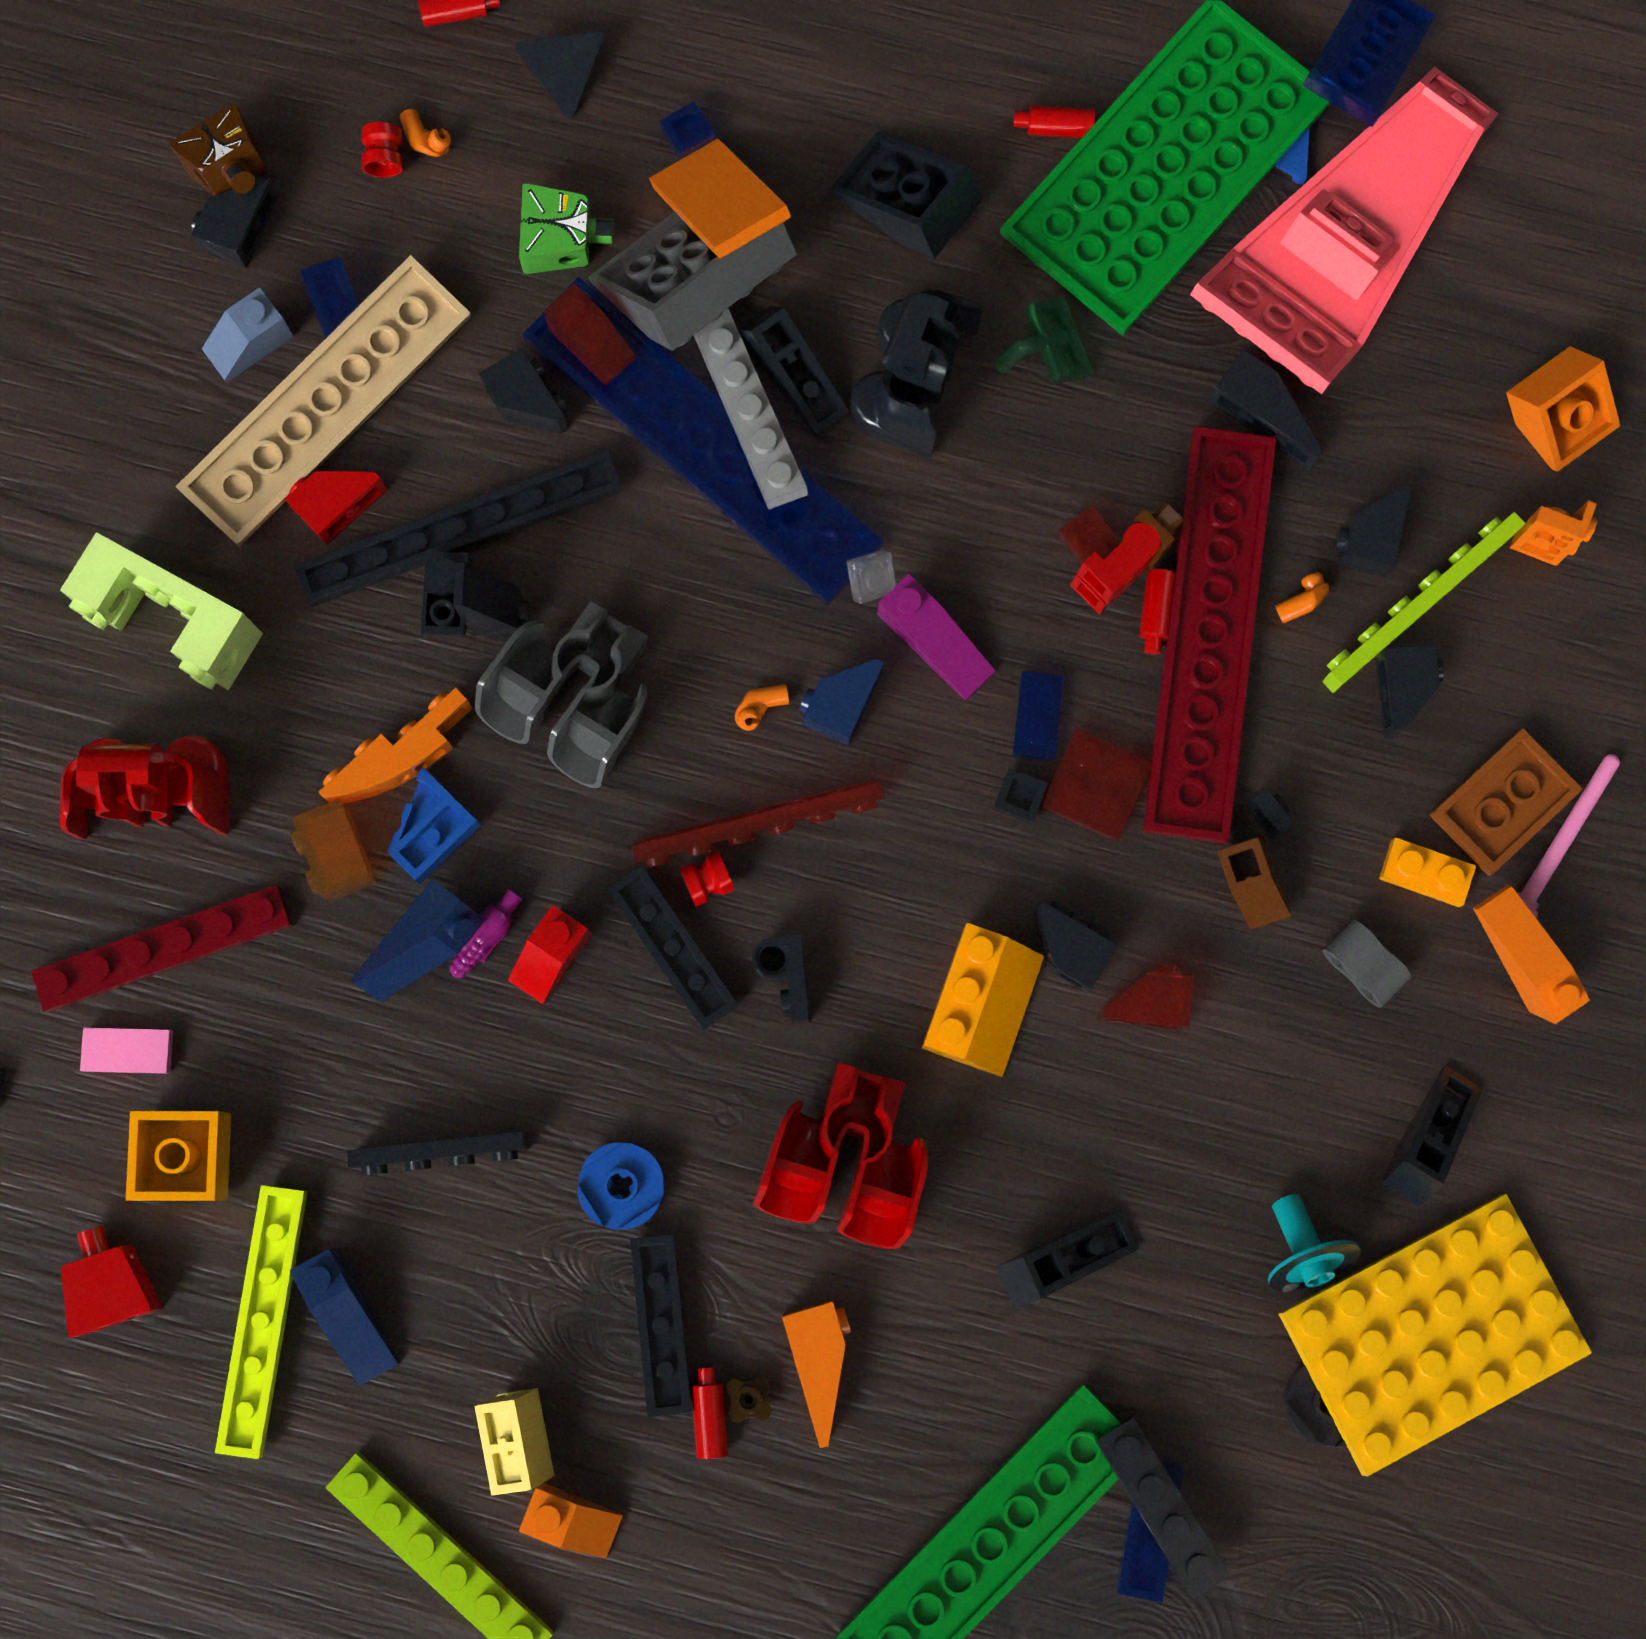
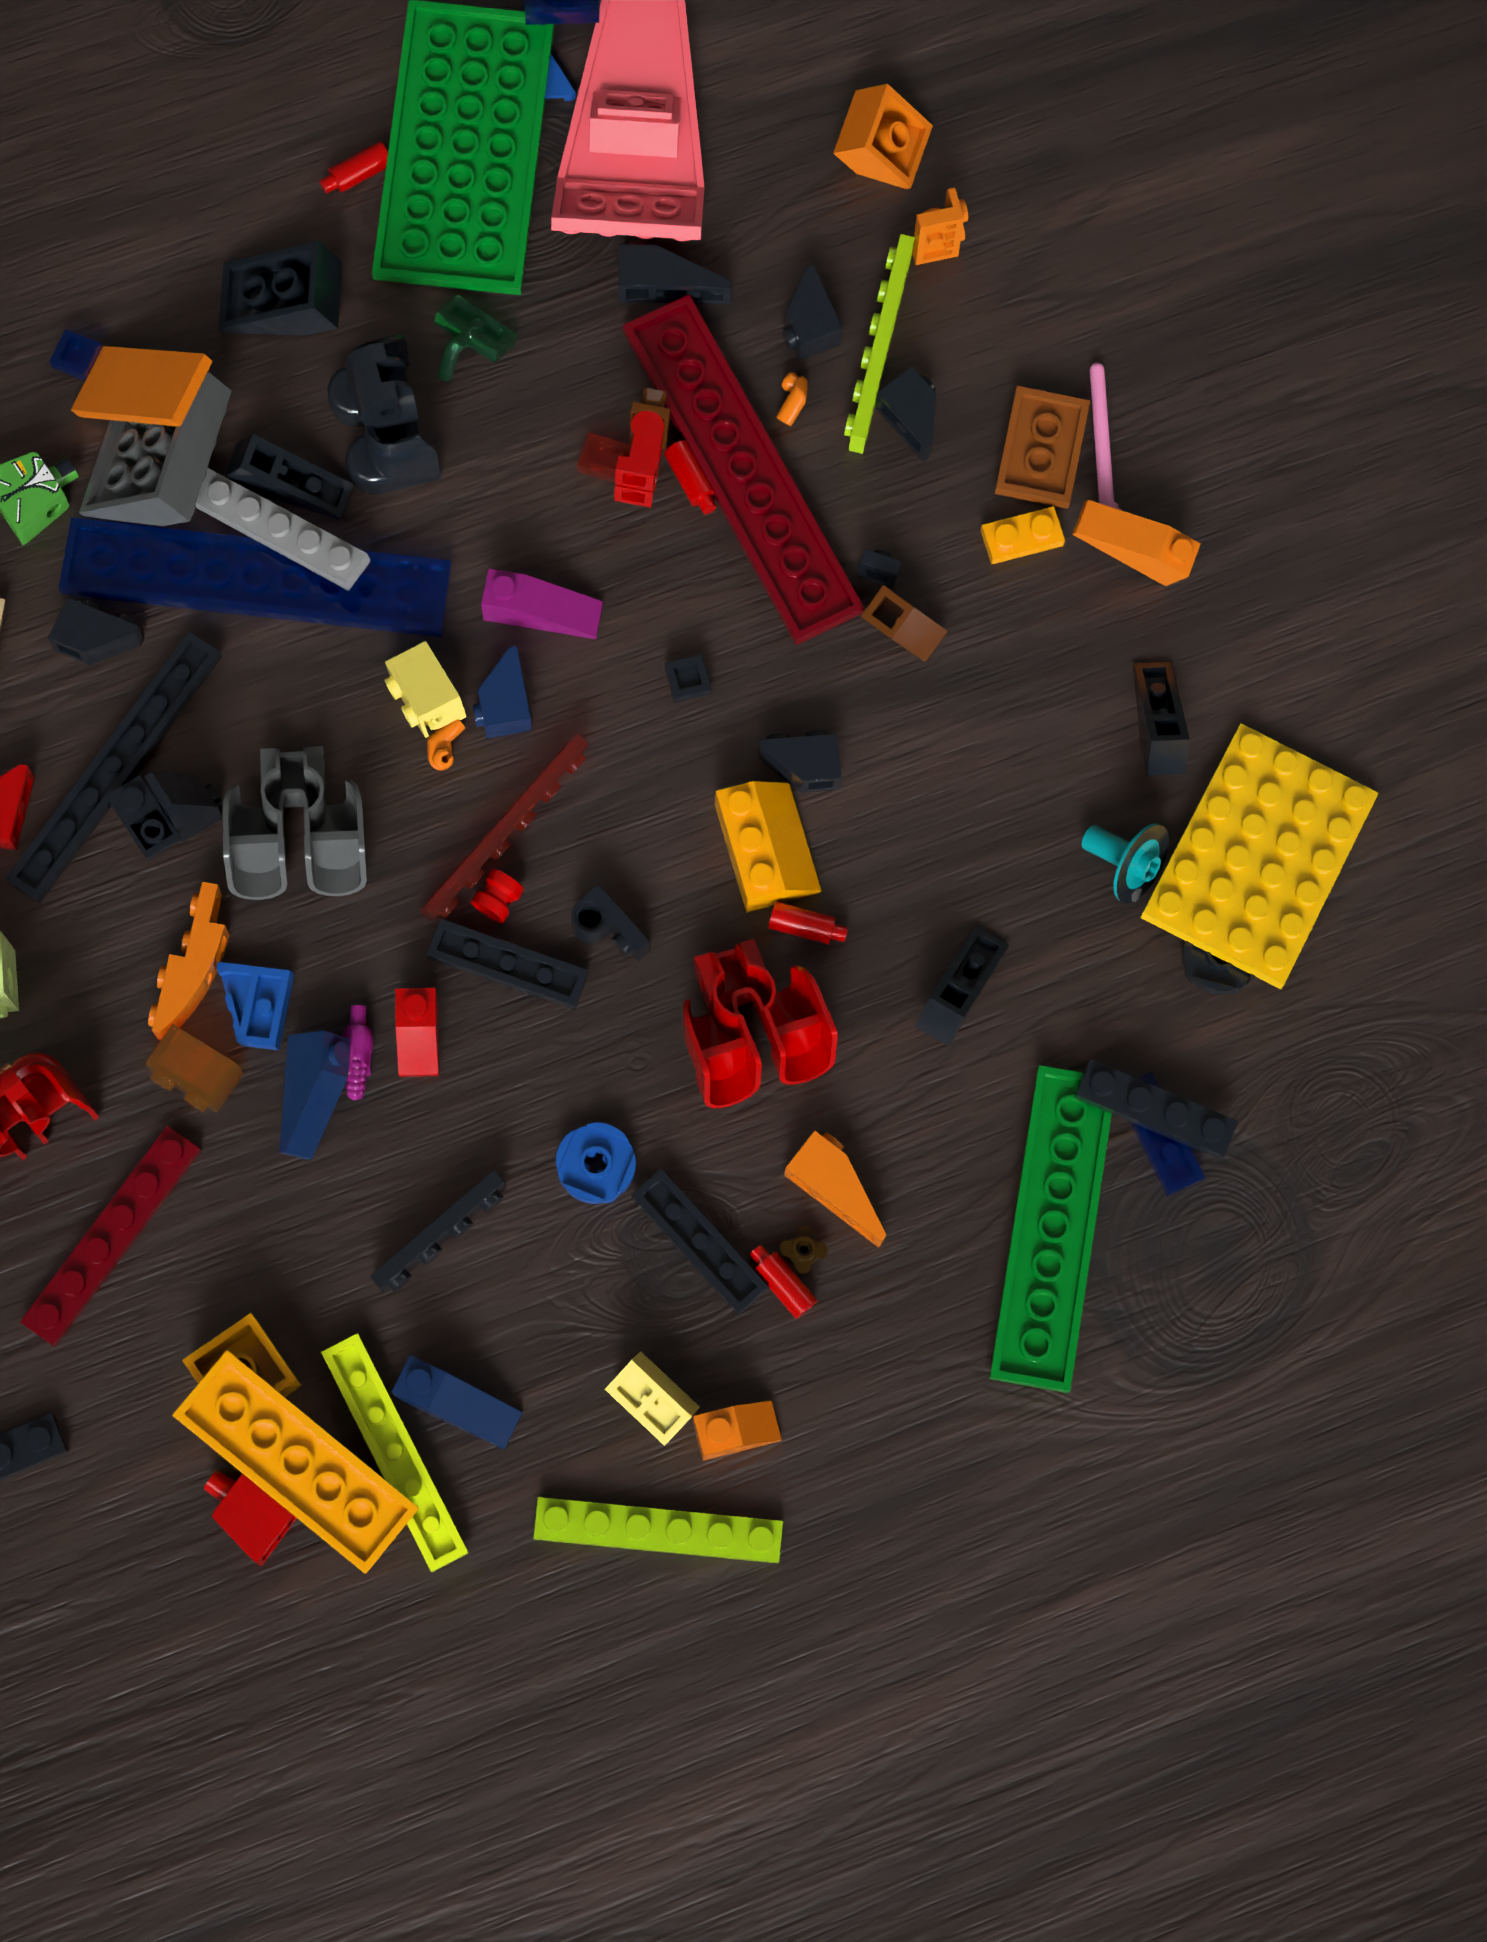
camera: 40 degrees left, 5 degrees down
(126, 1050) = (139, 1330): bright pink tile -> none
(159, 1275) = (295, 1461): none -> light orange plate
(588, 334) = (113, 552): clear red slope -> none
(774, 645) = (424, 689): none -> light yellow hinge
(871, 576) = (460, 592): clear plate -> none
(966, 1099) = (806, 923): none -> red cylinder
(1037, 716) = (658, 613): clear blue plate -> none
(1096, 785) = (737, 634): clear red plate -> none
(1155, 1000) = (893, 758): clear red slope -> none
(1367, 963) = (1026, 628): dark grey axle -> none

